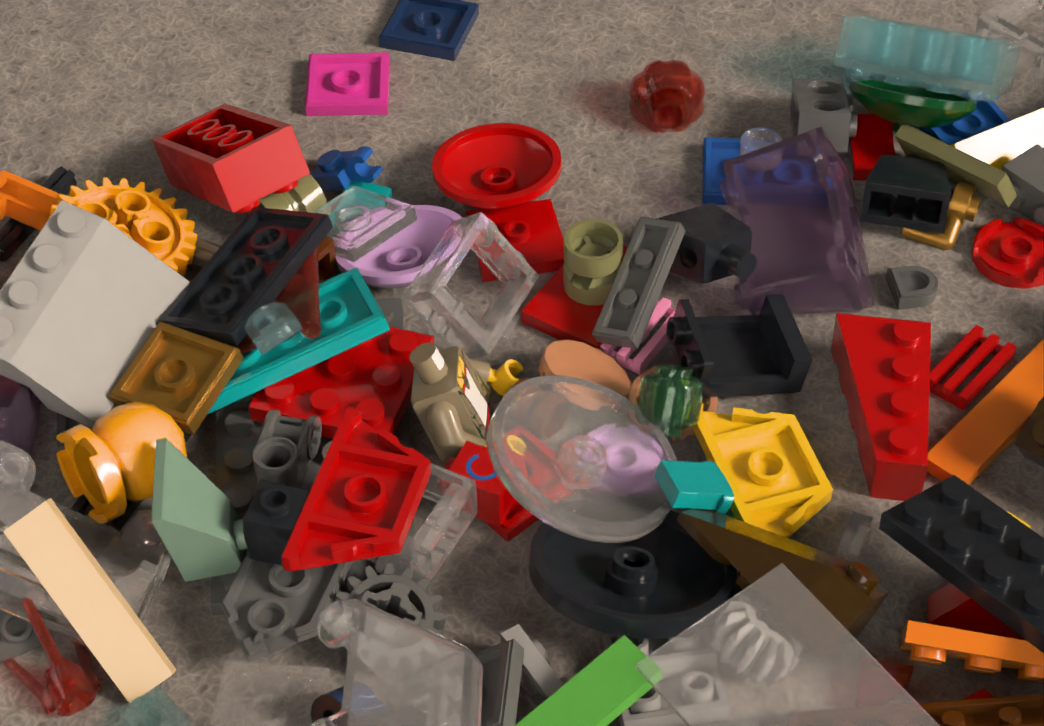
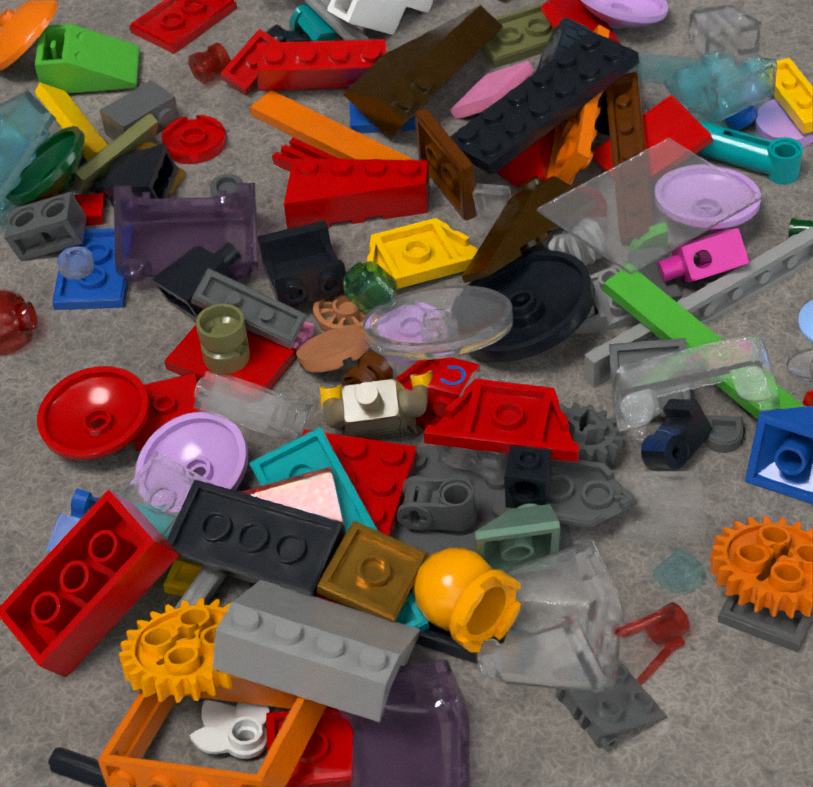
camera: 90 degrees left, 0 degrees up
(90, 600) = (613, 586): tan tile -> none
(271, 326) = (331, 497): clear light blue tile -> none
(694, 485) = (450, 272): teal tile -> none
(973, 461) = (447, 164): none -> reddish brown tile

